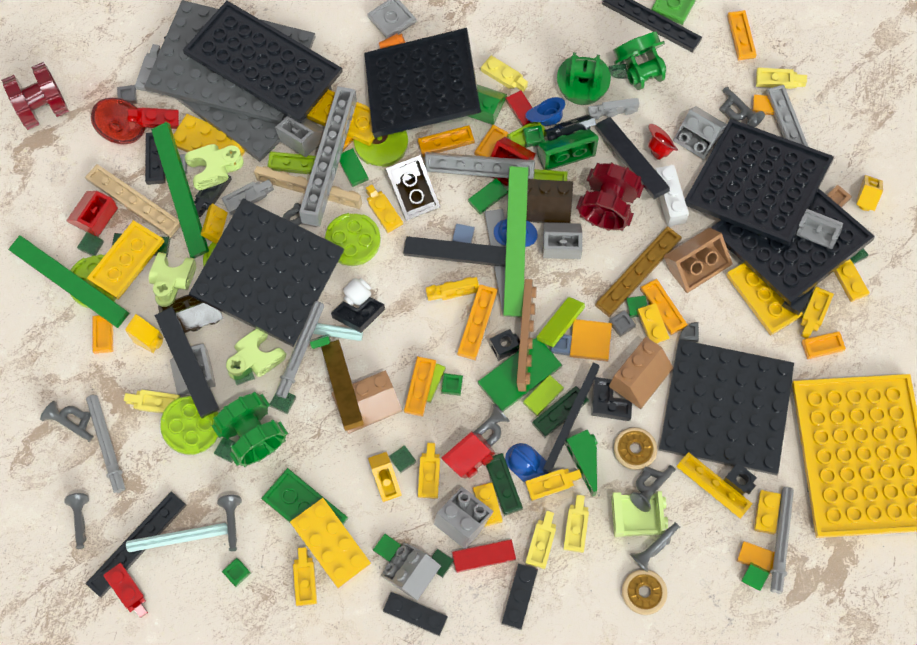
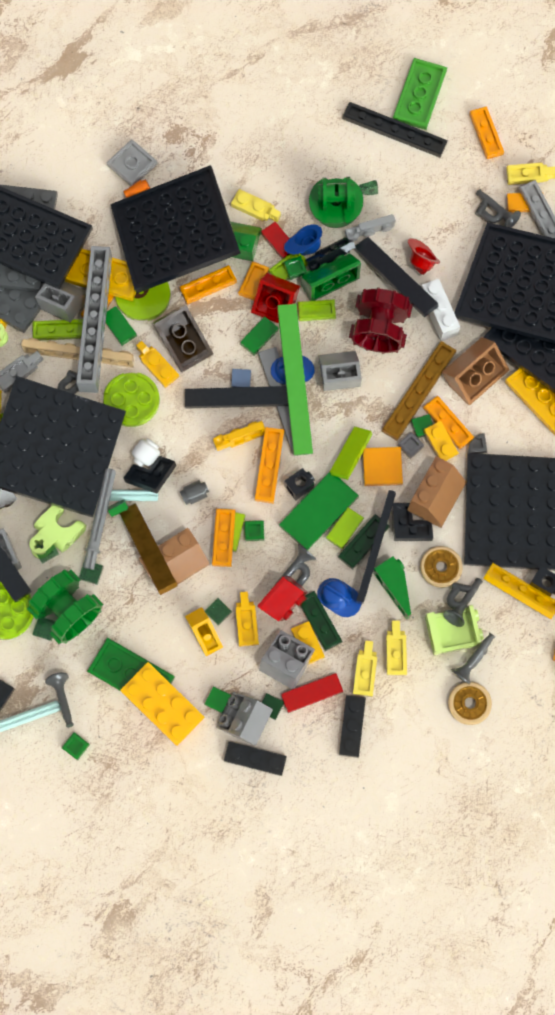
camera: 10 degrees left, 5 degrees up
(304, 579) = (143, 742): yellow hinge -> none
(398, 337) = (194, 492): none -> dark grey brick
(475, 165) = (242, 306): light grey tile -> none
(526, 342) = (320, 479): medium nougat plate -> none
(549, 201) = (321, 333): dark brown slope -> none
(551, 483) = (366, 613): yellow hinge -> none
(563, 346) = (356, 476): sand blue tile -> none
(639, 46) = (394, 186): green piece -> none
(699, 132) = (458, 240): light grey slope -> none

